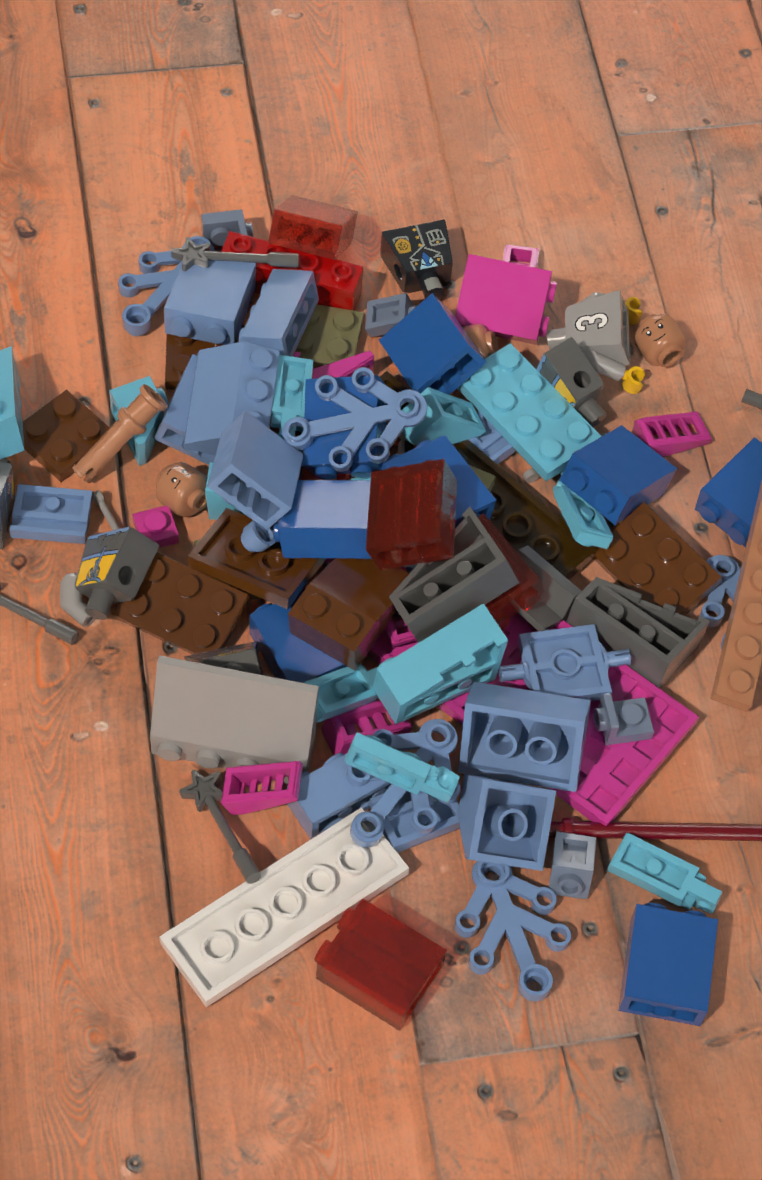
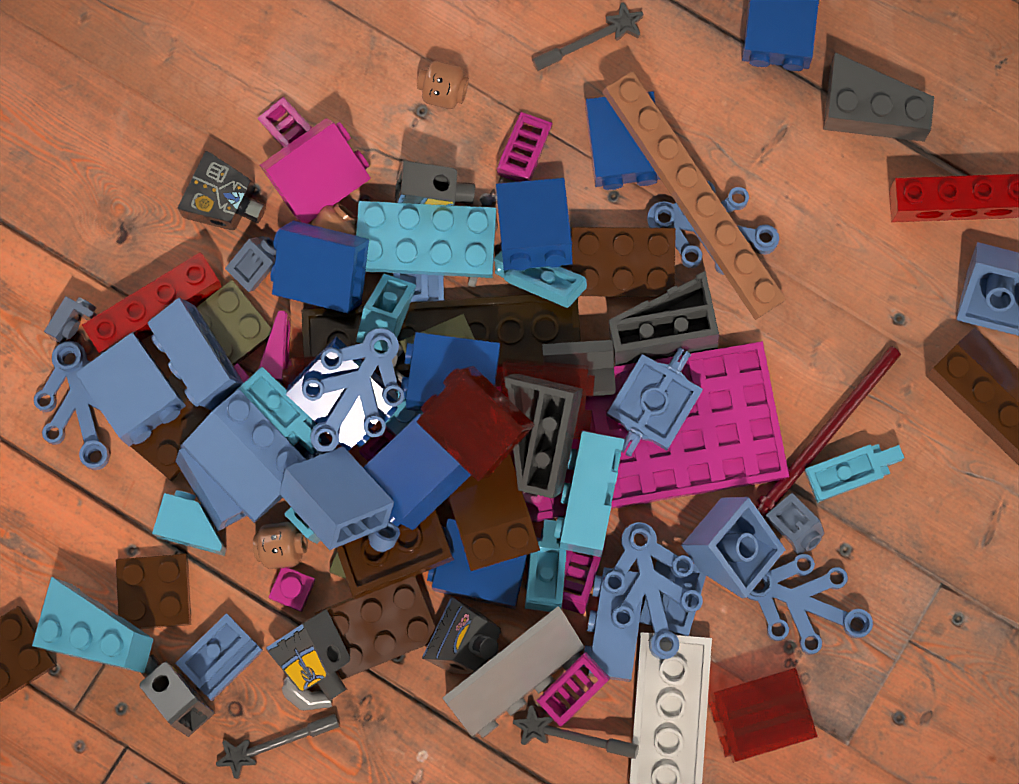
camera: 40 degrees left, 20 degrees up
(99, 501) = (288, 622): light grey hinge -> none
(130, 422) = (200, 544): nougat pin -> none
(201, 253) = (89, 370): dark grey piece -> none
(312, 227) = (131, 257): clear red brick -> none
(400, 768) = (652, 589): medium azure hinge -> none
(523, 736) = (686, 478): medium blue slope -> none
(602, 333) = (403, 126): light grey torso -> none
(623, 720) = (726, 397): sand blue bracket -> none
(668, 964) = (916, 524): blue brick -> none

